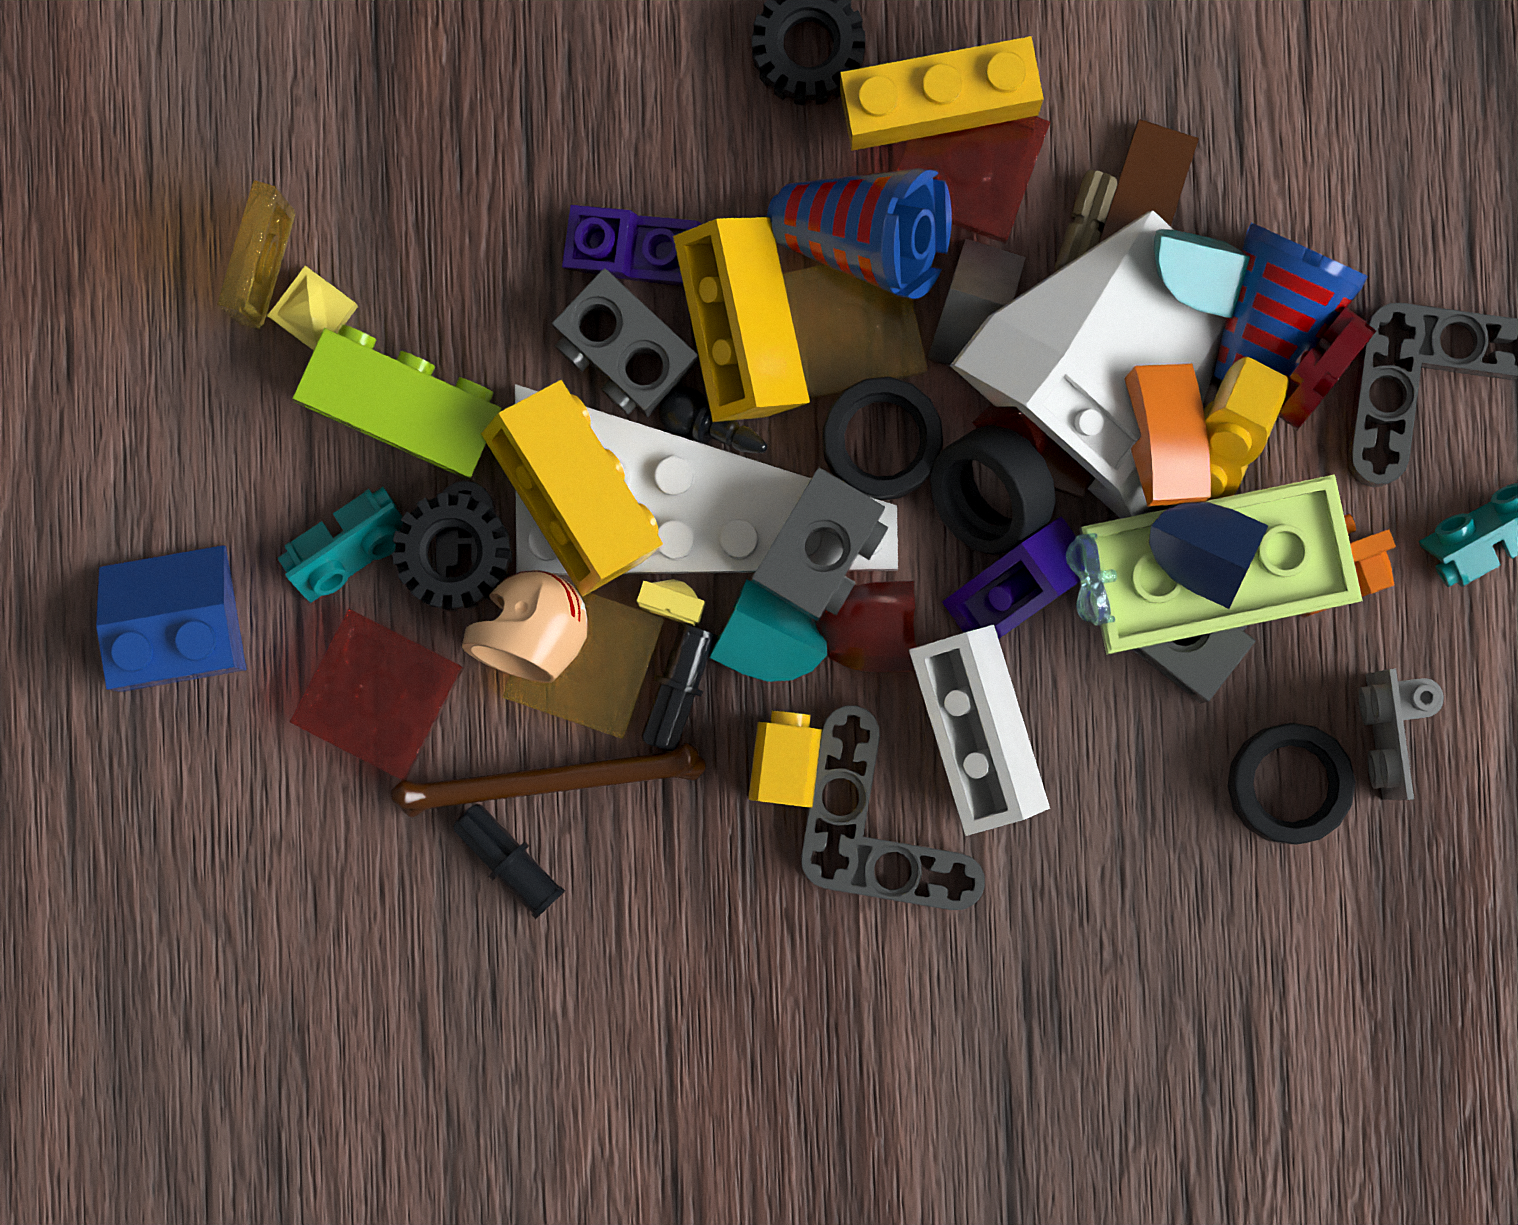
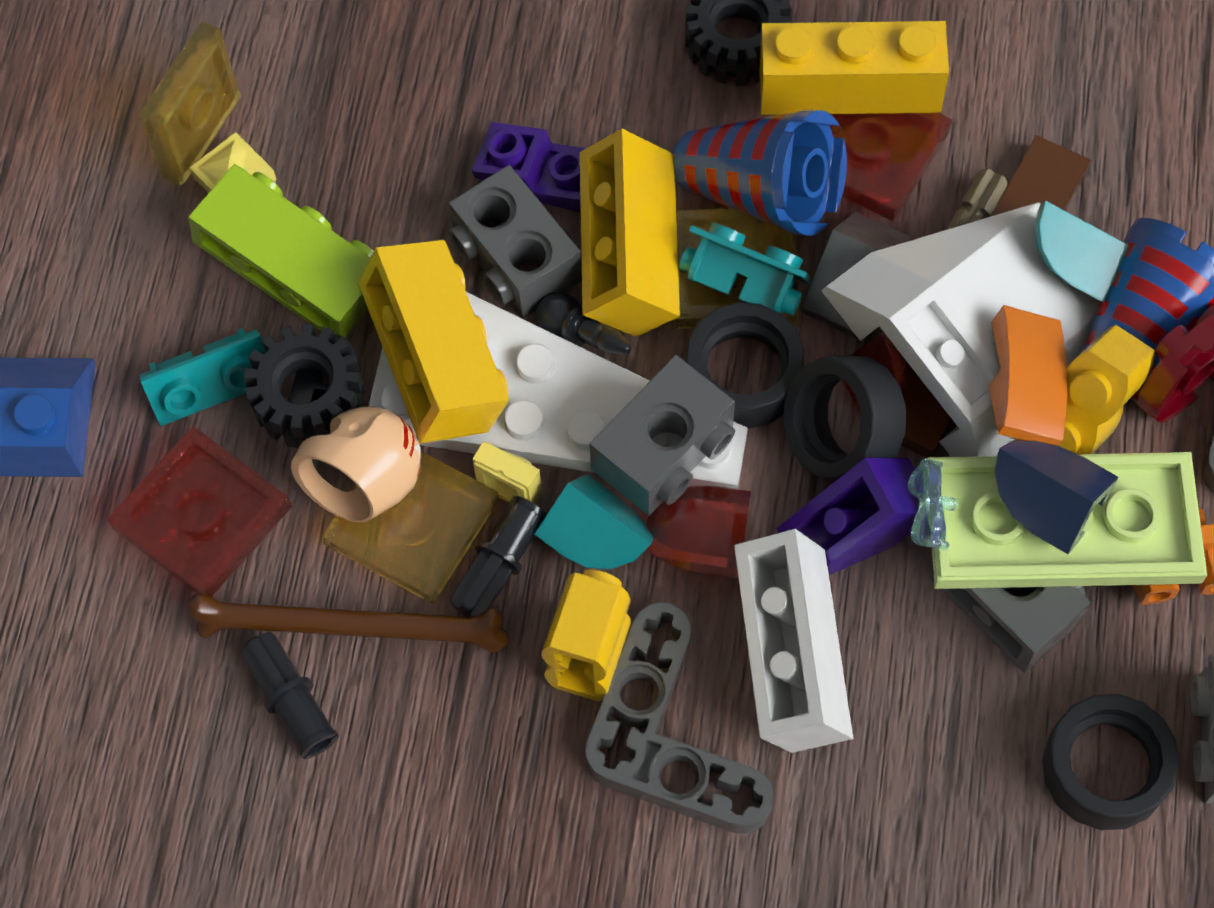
camera: 10 degrees right, 20 degrees down
(845, 327) = (723, 257): none -> teal hinge

